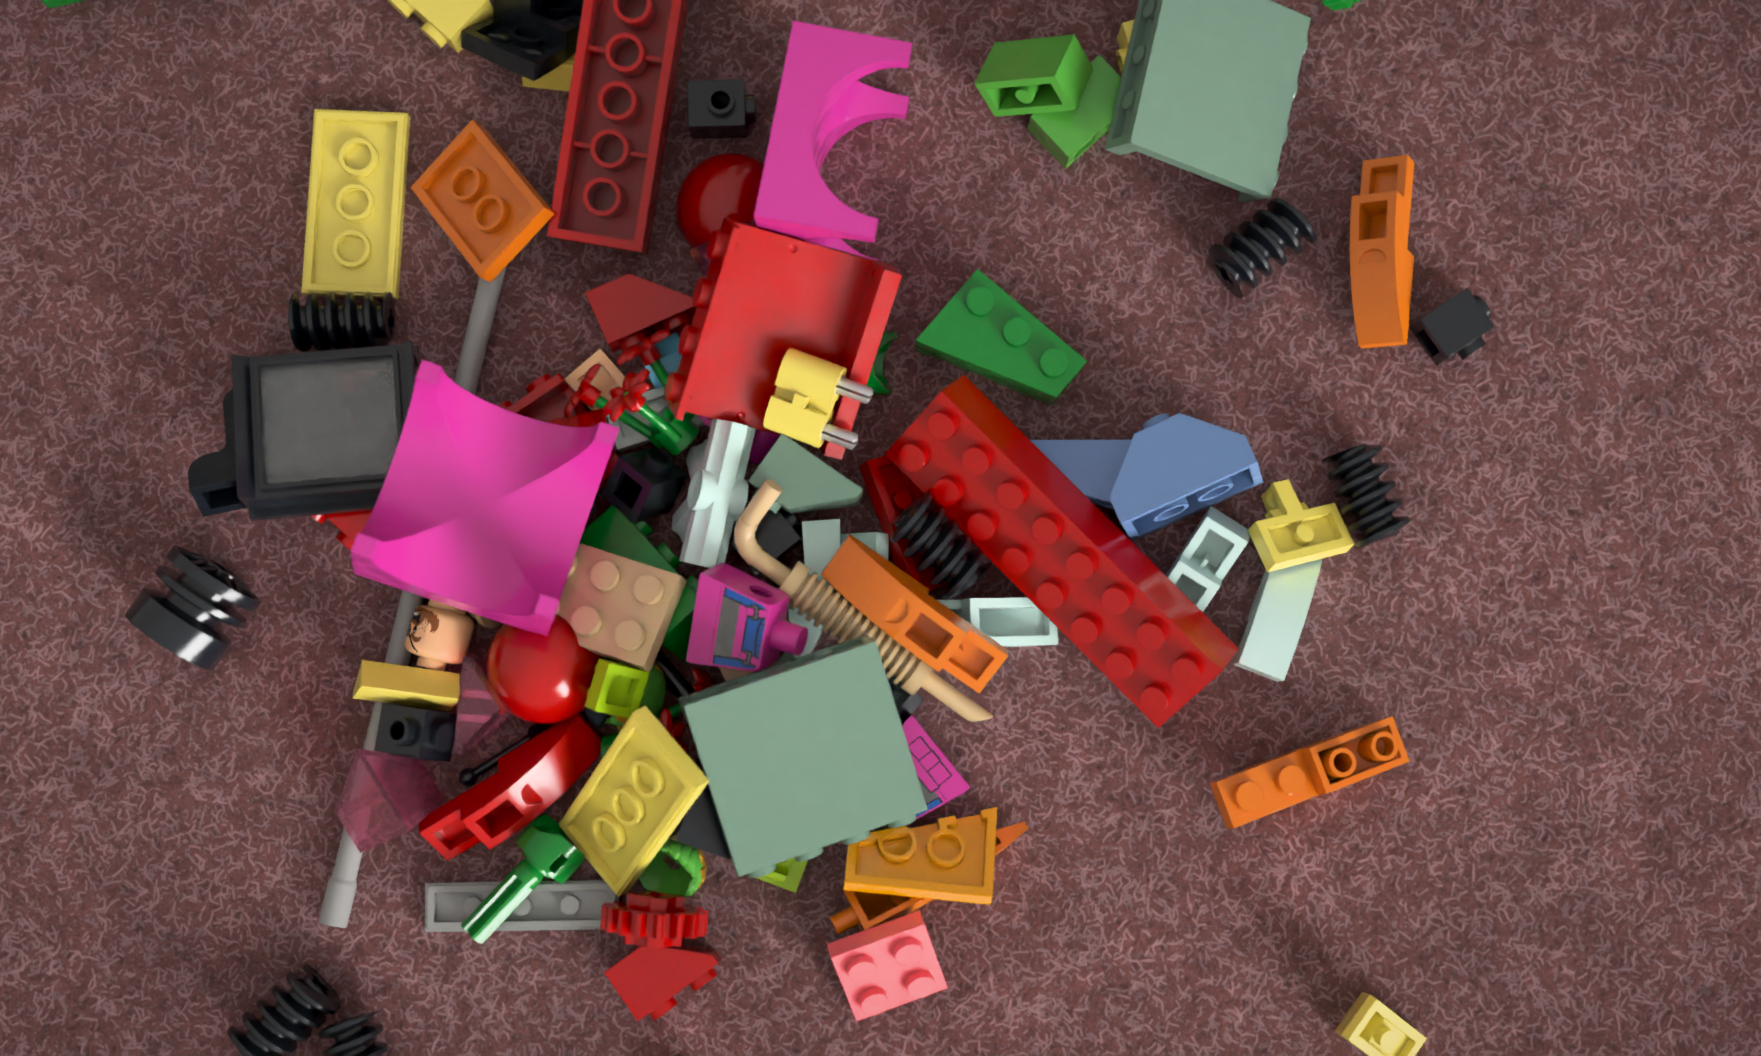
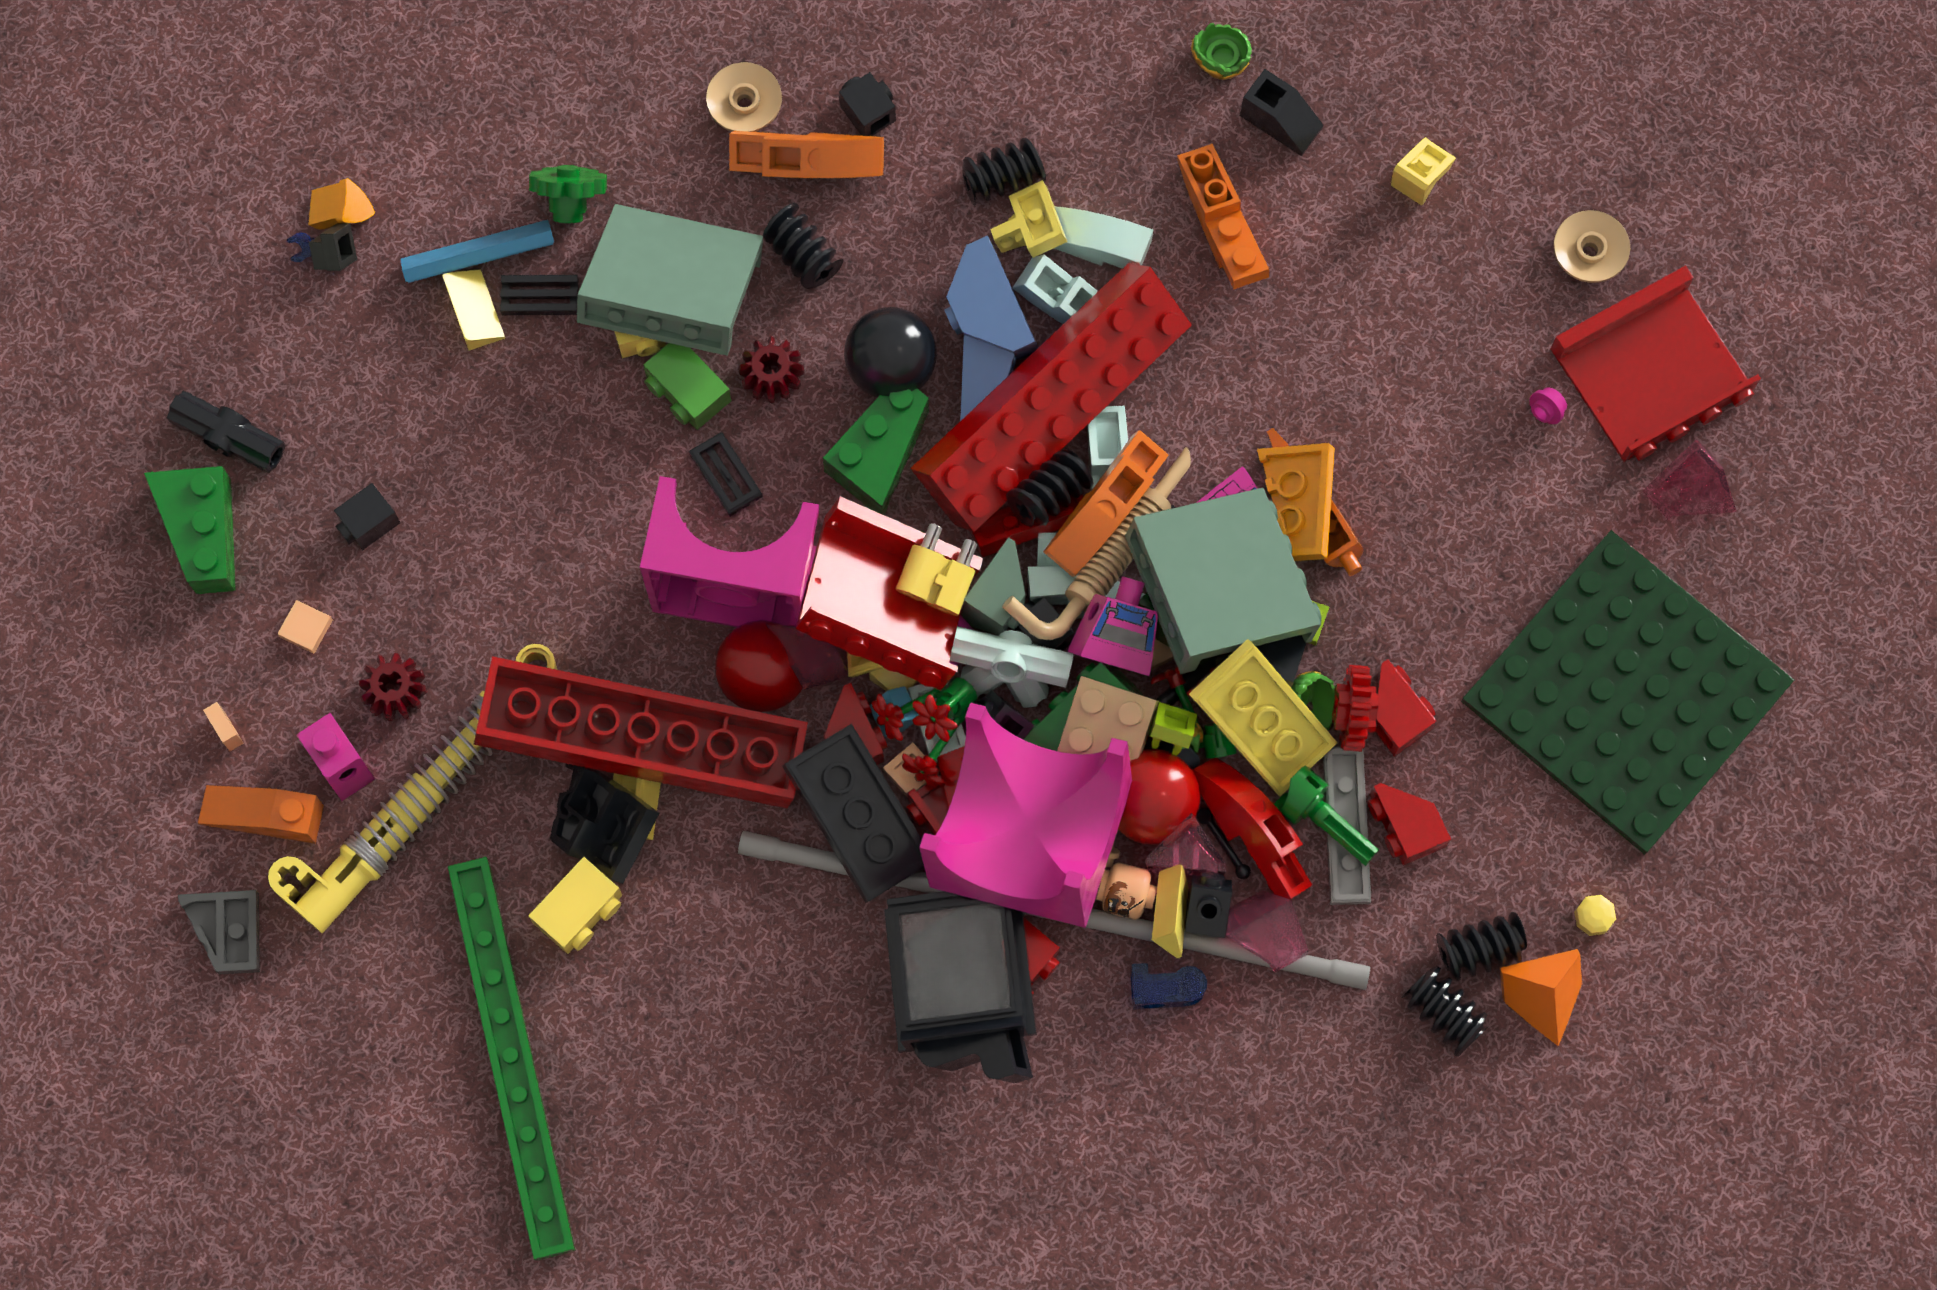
camera: 90 degrees left, 10 degrees down
(193, 607) = (1108, 1088): black wheel -> none
(320, 681) = (1166, 989): none -> clear blue leg
(340, 324) = (859, 976): black piece -> none
(356, 203) = (755, 976): light yellow tile -> none
(482, 201) = (760, 858): orange plate -> none
(517, 985) = (1410, 821): none -> red slope
(531, 313) = (857, 812): none -> black tile
(719, 108) = (680, 668): black brick -> none
(887, 965) = (1385, 530): coral plate -> none
(937, 183) = (742, 500): none -> black tile
(1034, 76) = (661, 413): bright green brick -> none
(1089, 198) = (773, 383): none -> dark red gear
(1115, 350) = (890, 351): none -> black piece
(1453, 851) = (1280, 112): none -> black slope
(1477, 163) = (741, 82): none -> tan dish
(1539, 776) = (1221, 51): none -> bright green hair

